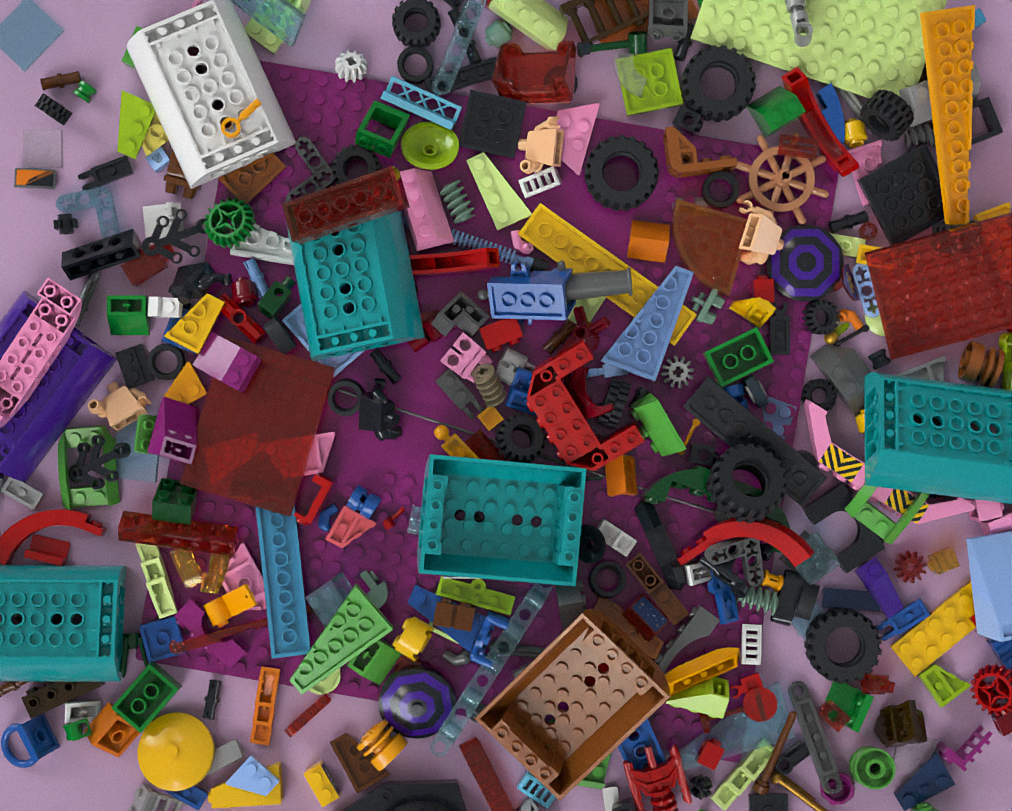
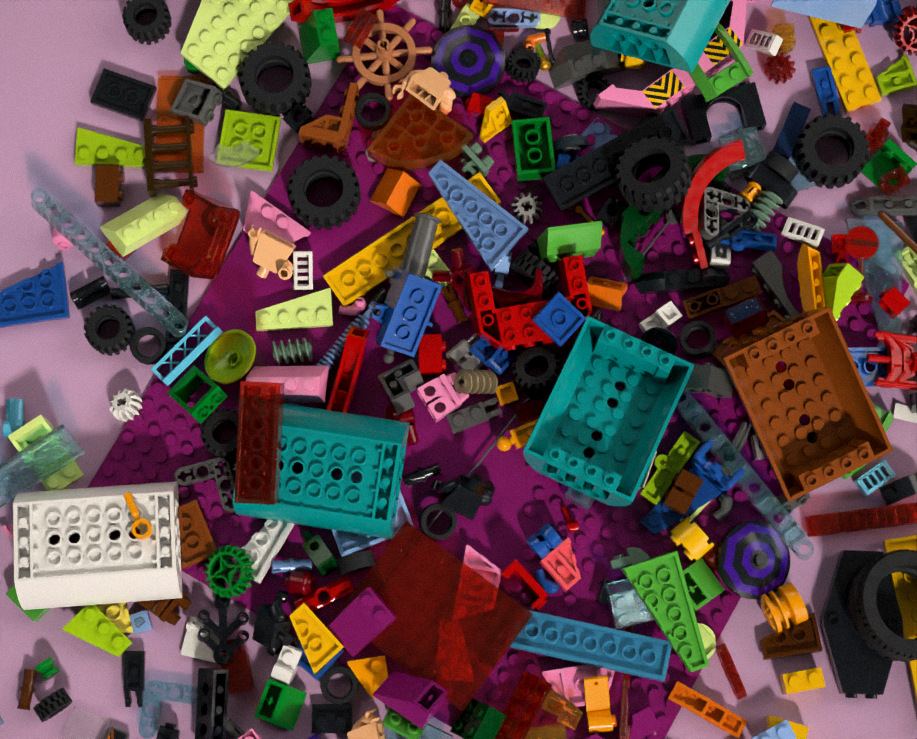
camera: 70 degrees left, 10 degrees down
(331, 573) = (602, 597): none -> black pin
(492, 124) = (232, 293): black plate -> none
(498, 33) = (150, 258): sand green head -> none
(573, 442) = (559, 319): none -> blue tile
(635, 43) = (209, 139): dark green piece -> none
(880, 586) = (788, 99): dark purple slope -> none
(930, 554) = (773, 46): none -> white slope

